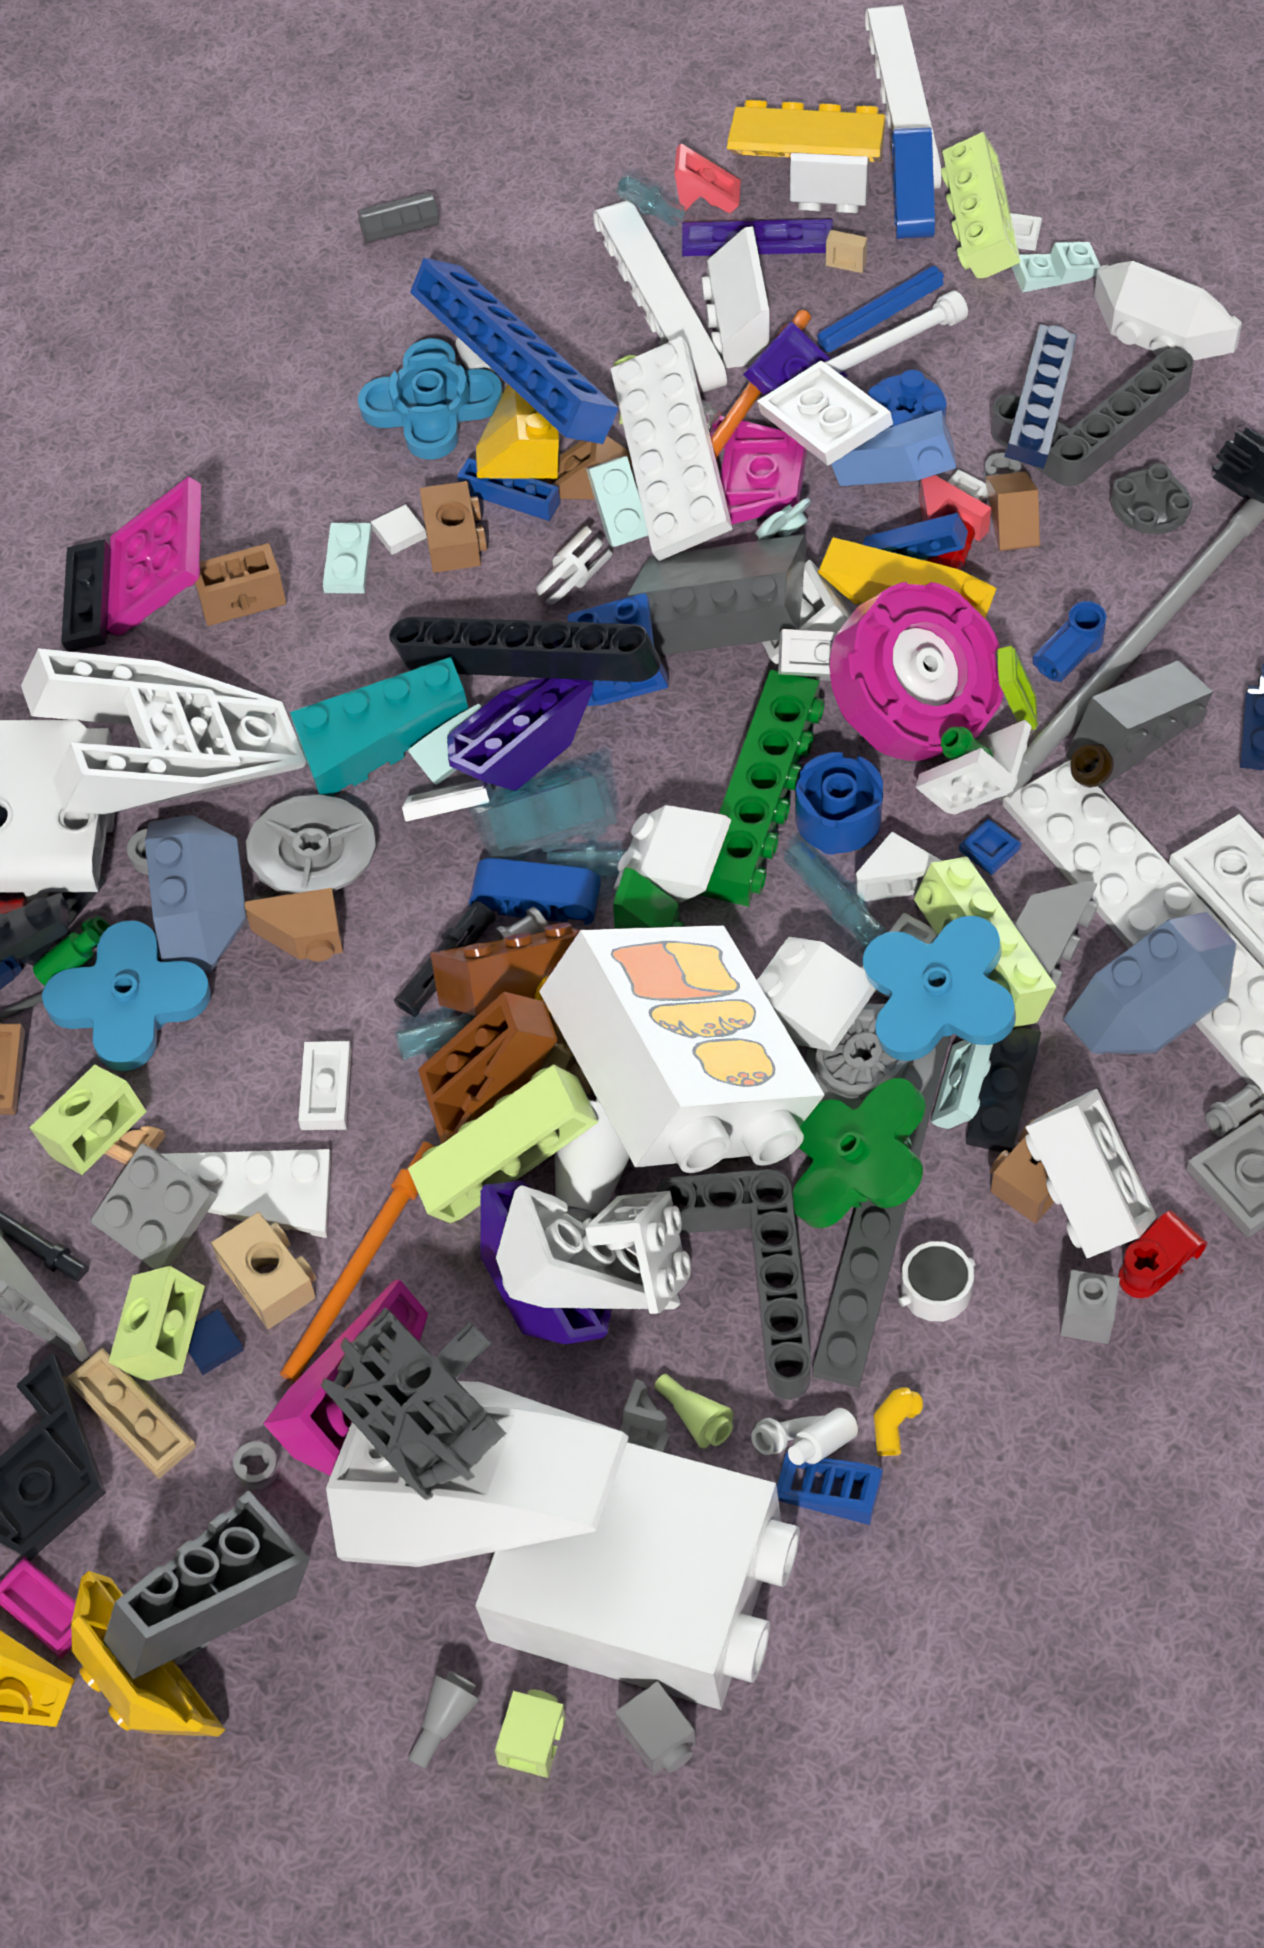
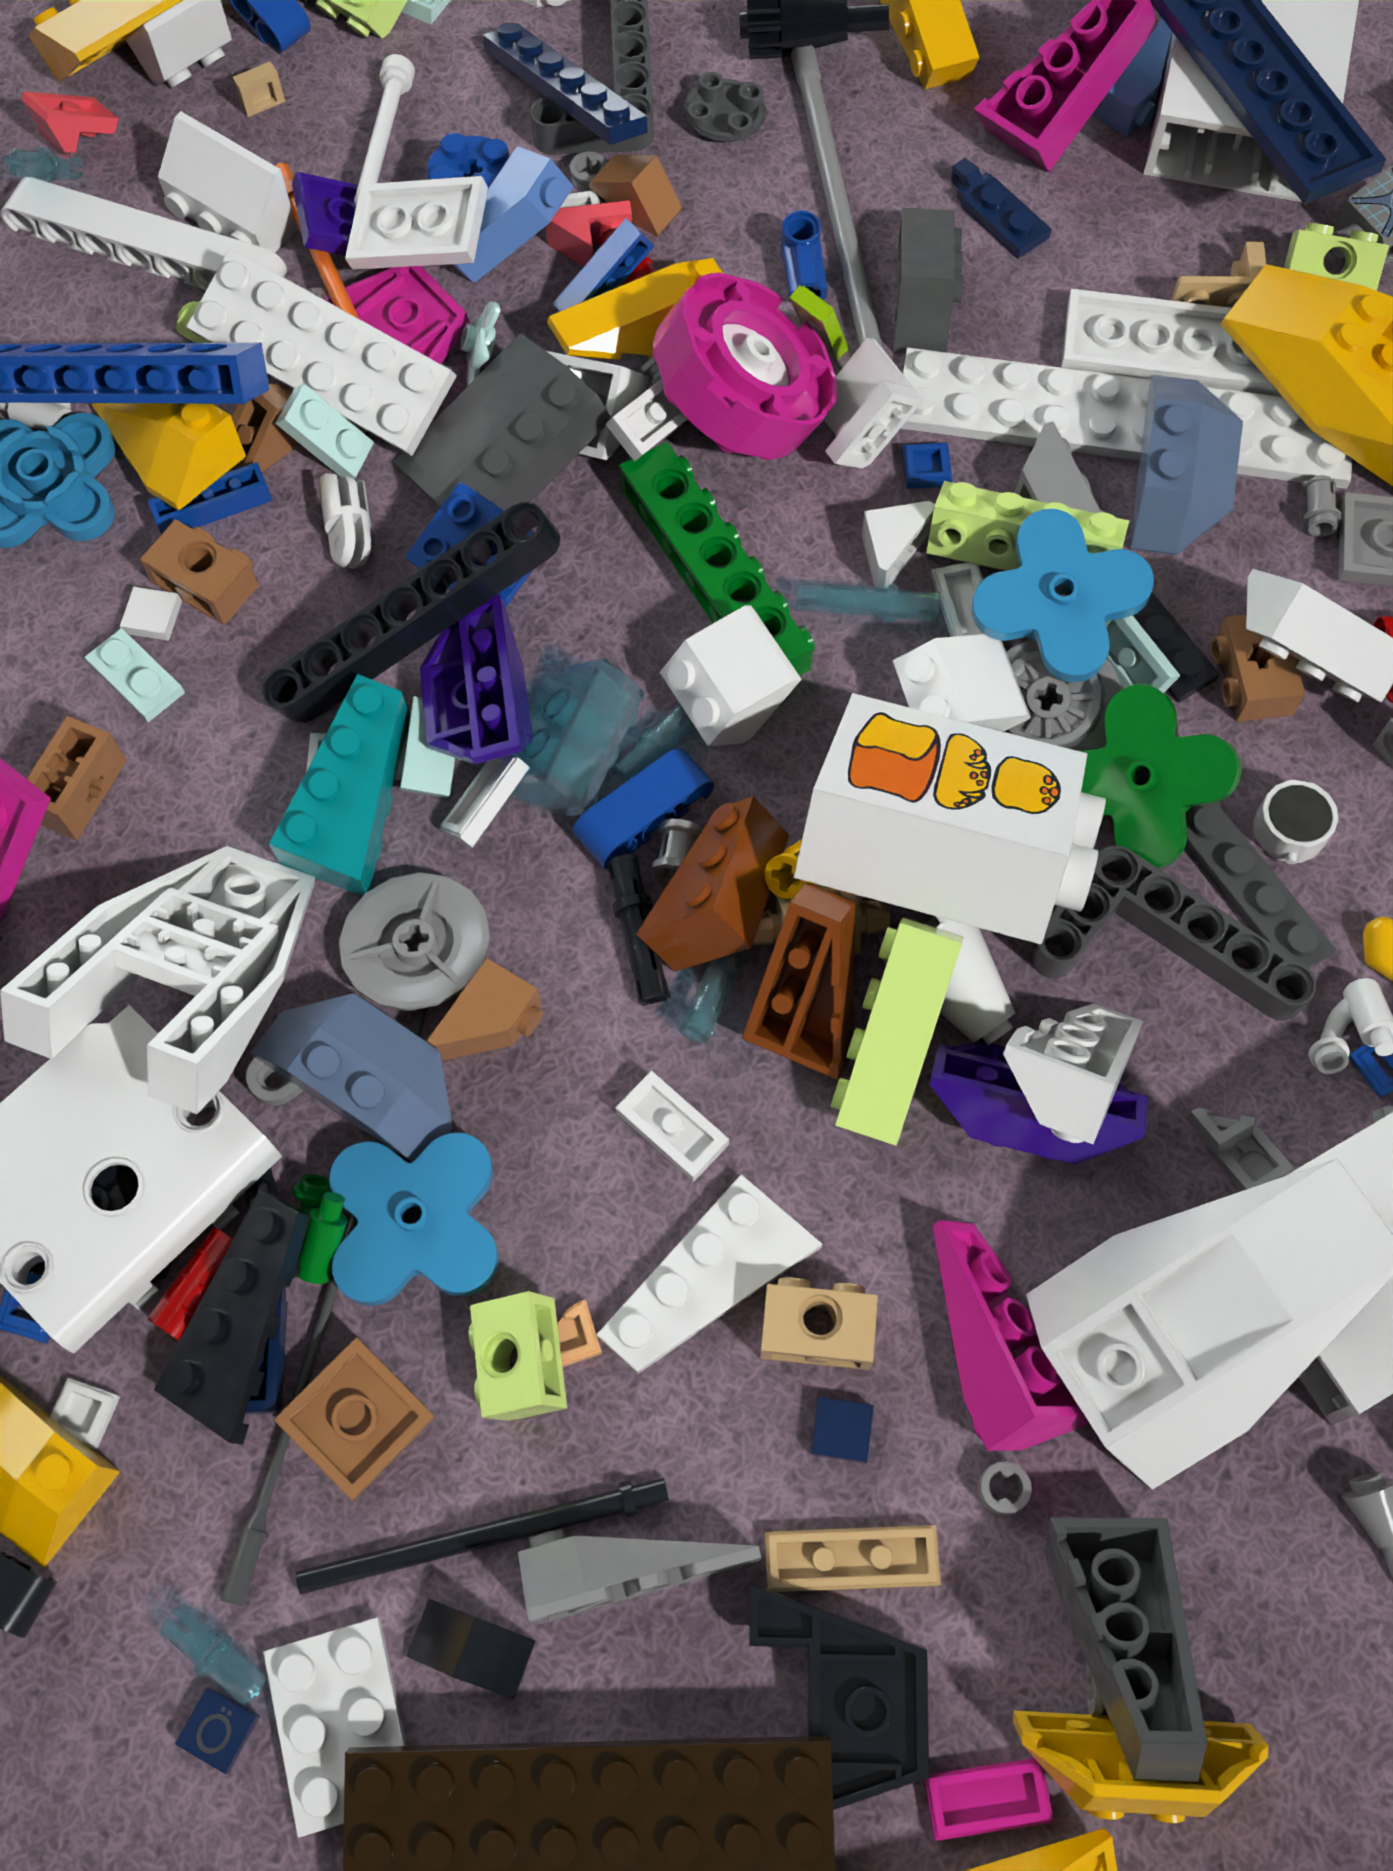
camera: 50 degrees left, 10 degrees up
(153, 1208) = (666, 1372): light grey plate -> none
(156, 1324) = (824, 1471): yellowish green brick -> none
(403, 1190) = (836, 1143): orange bar -> none
(414, 1403) = (1130, 1344): dark grey piece -> none
(643, 904) = (764, 748): green slope -> none
(654, 1228) = (1082, 995): white bracket -> none
(703, 1417) = (1267, 1089): yellowish green cone -> none
(770, 236) = (147, 145): dark purple tile -> none
(838, 803) = (794, 524): blue brick -> none
(880, 309) = (338, 115): blue axle -> none
(959, 742) = (848, 390): green pin -> none
(1084, 758) = (937, 323): dark brown plate -> none

